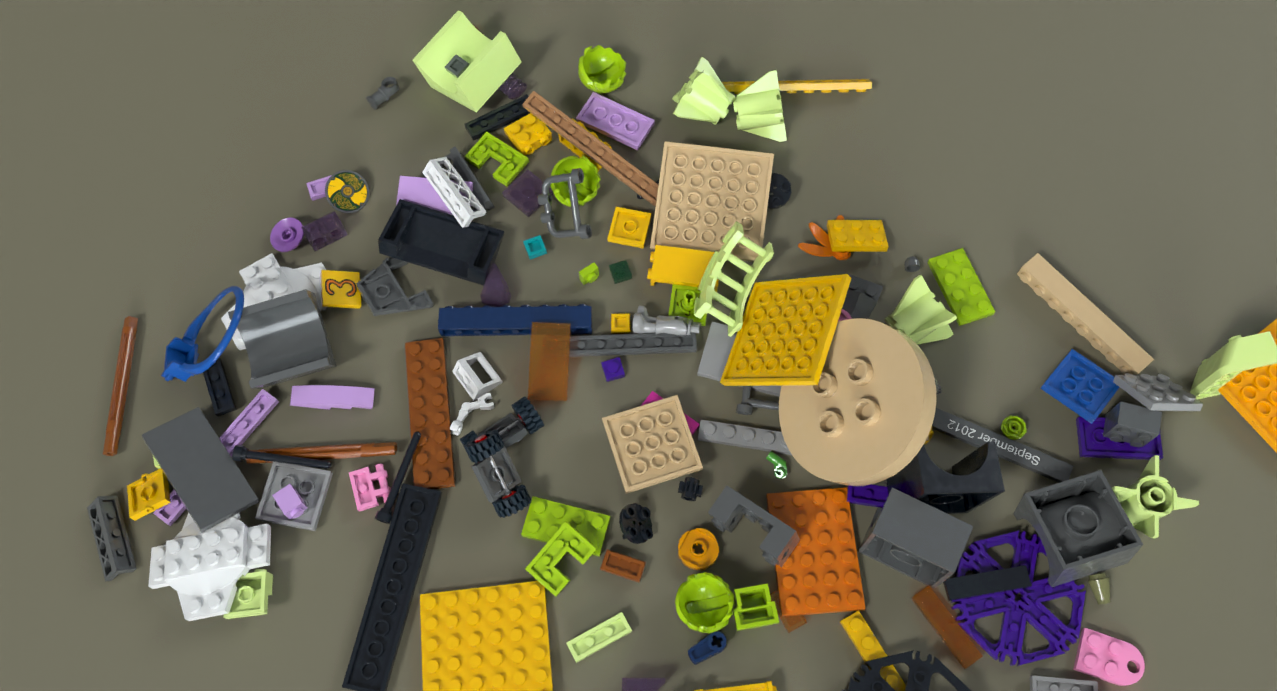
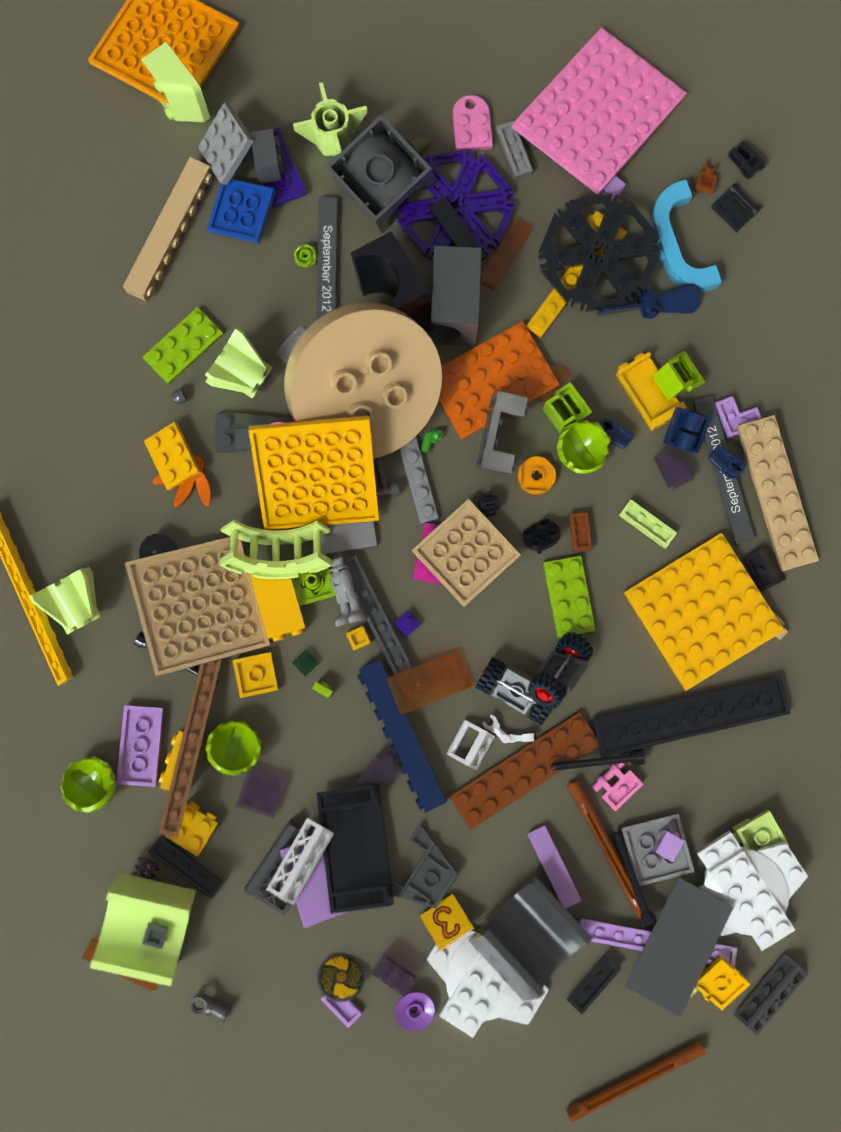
camera: 120 degrees left, 15 degrees up
(182, 353) = (583, 1034): blue brick -> none
(511, 160) = (224, 856): lime plate -> none
(535, 247) = (317, 756): teal plate -> none
(563, 541) = (610, 596): lime plate -> none
(573, 178) = (280, 759): dark grey bar -> none
(703, 96) = (80, 664): yellowish green brick -> none

